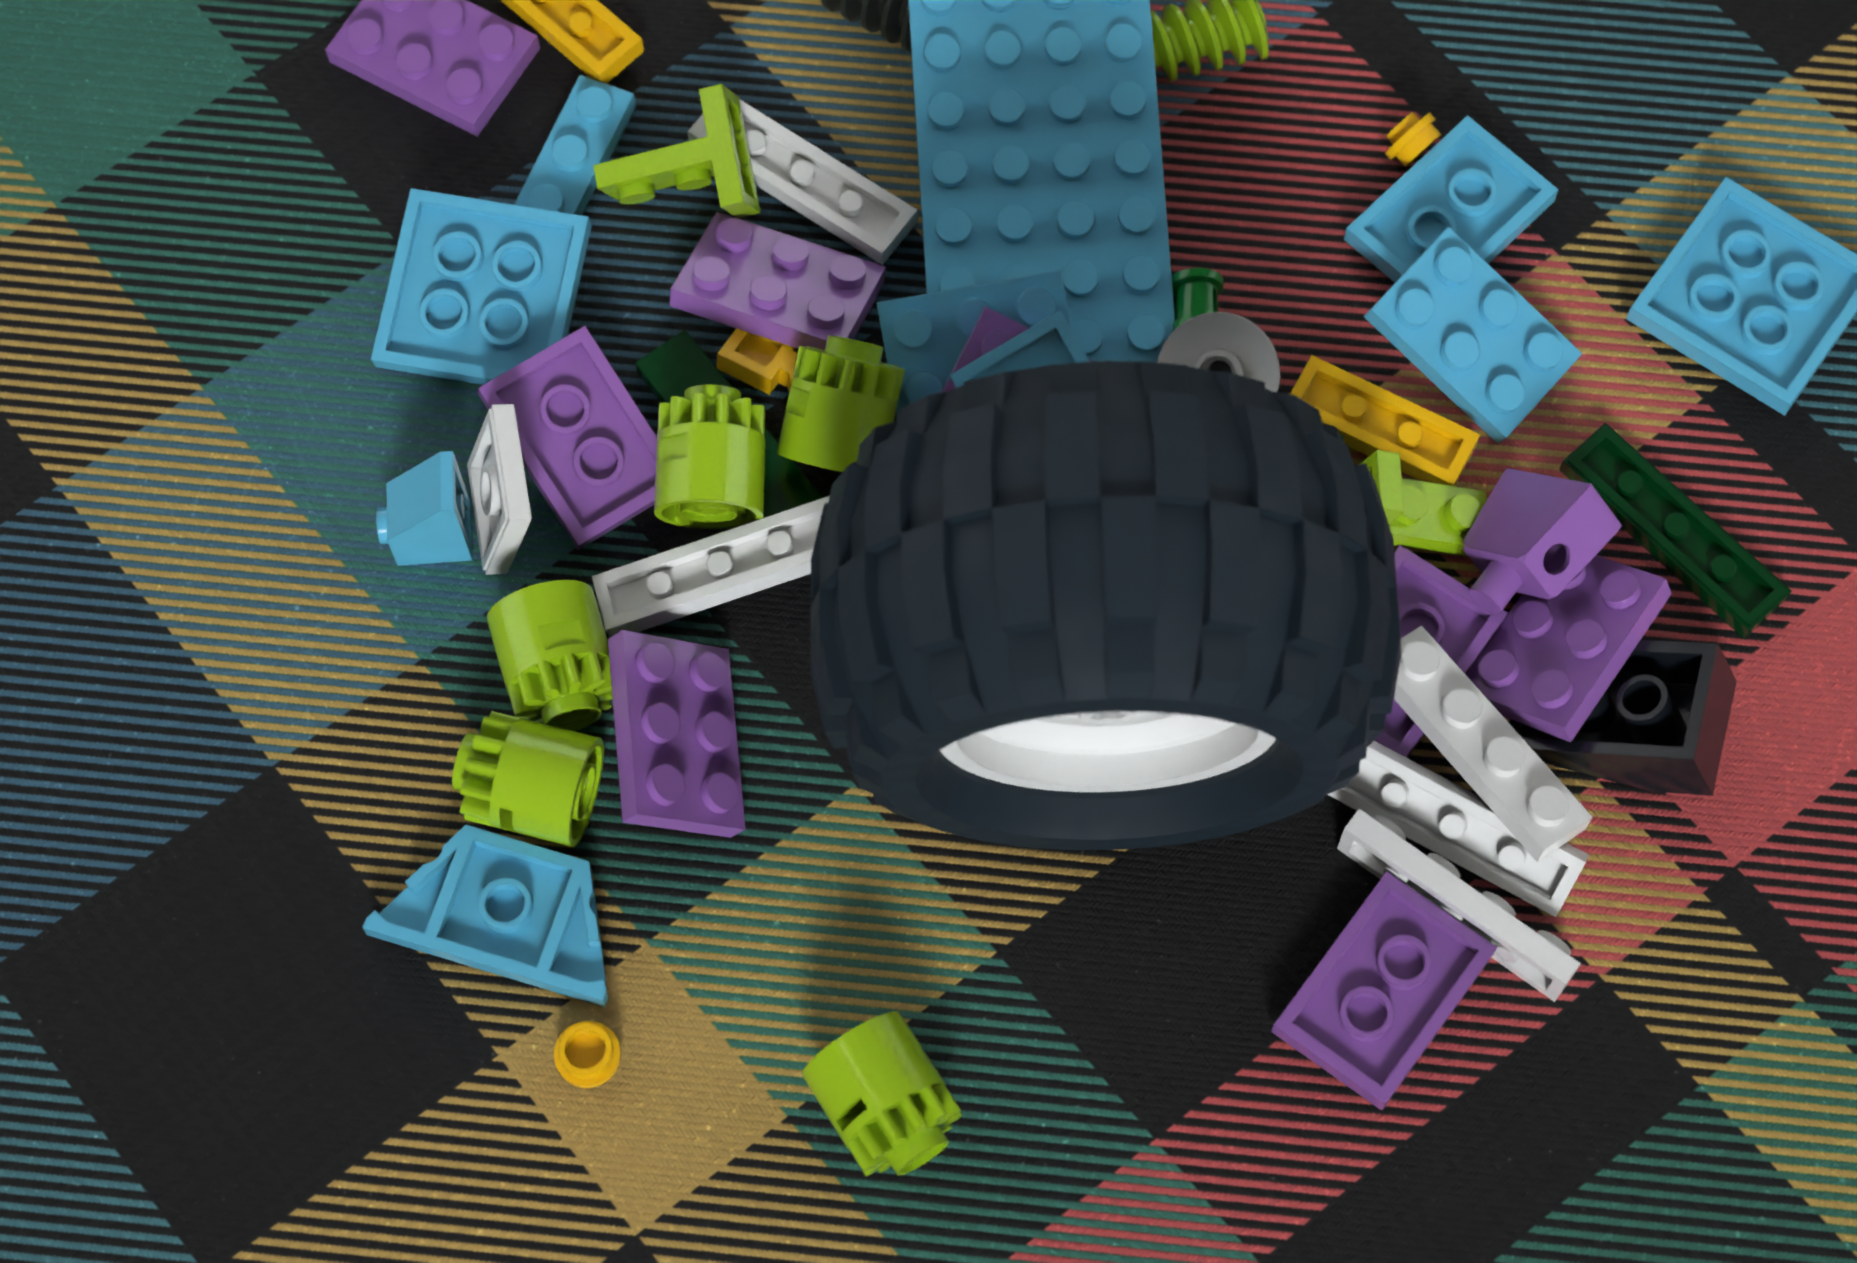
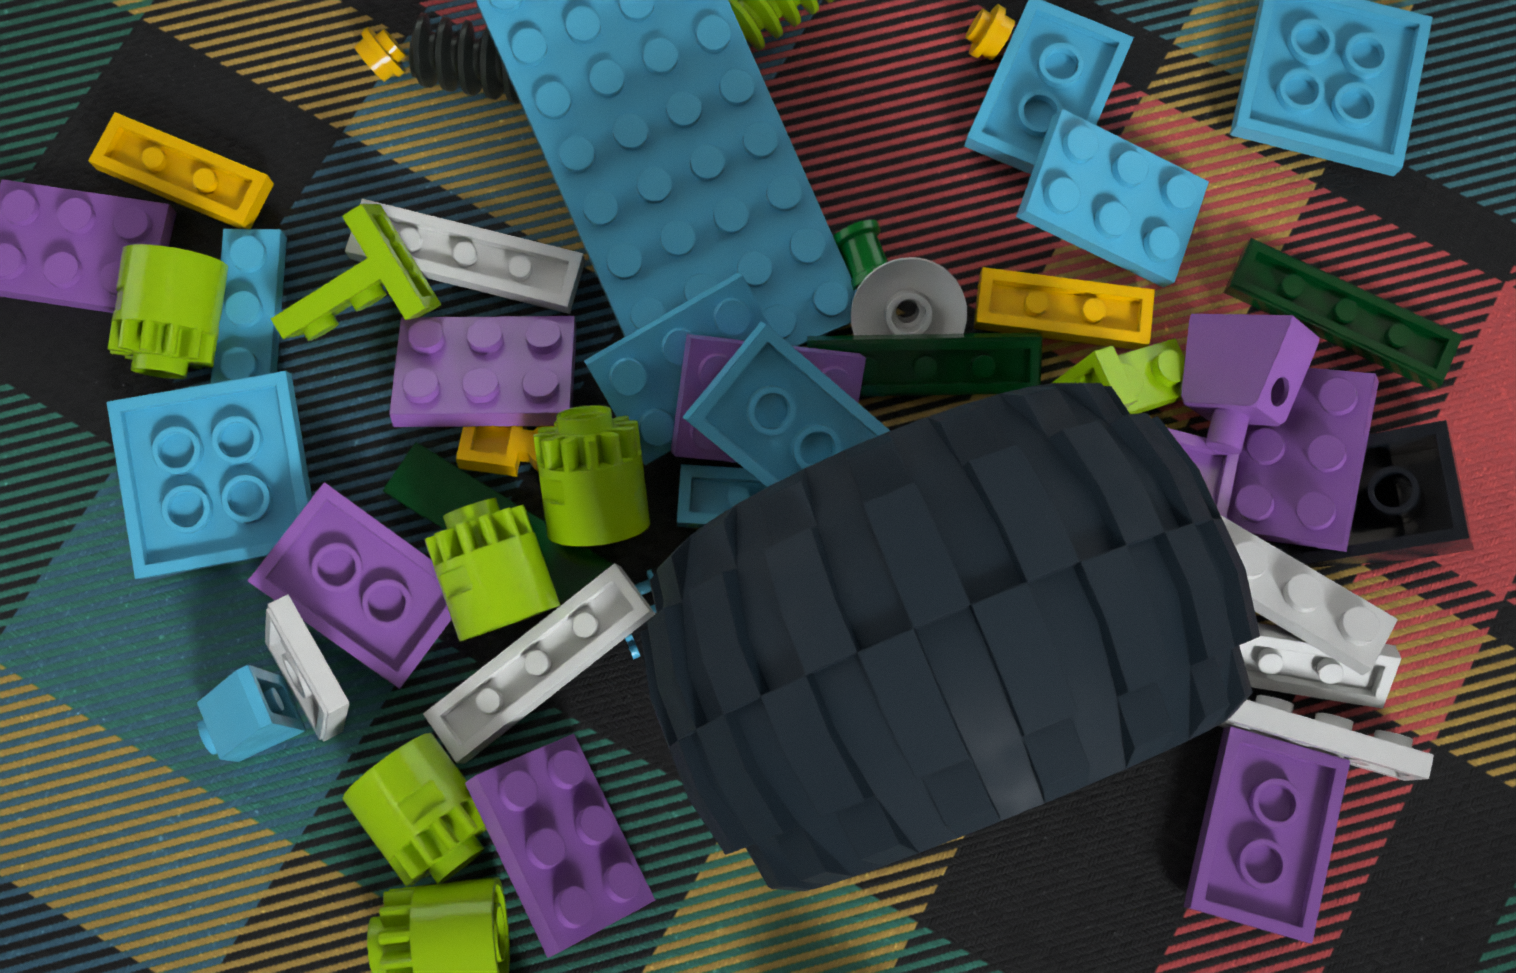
camera: 25 degrees left, 10 degrees up
(500, 125) = (167, 309): none -> lime gear

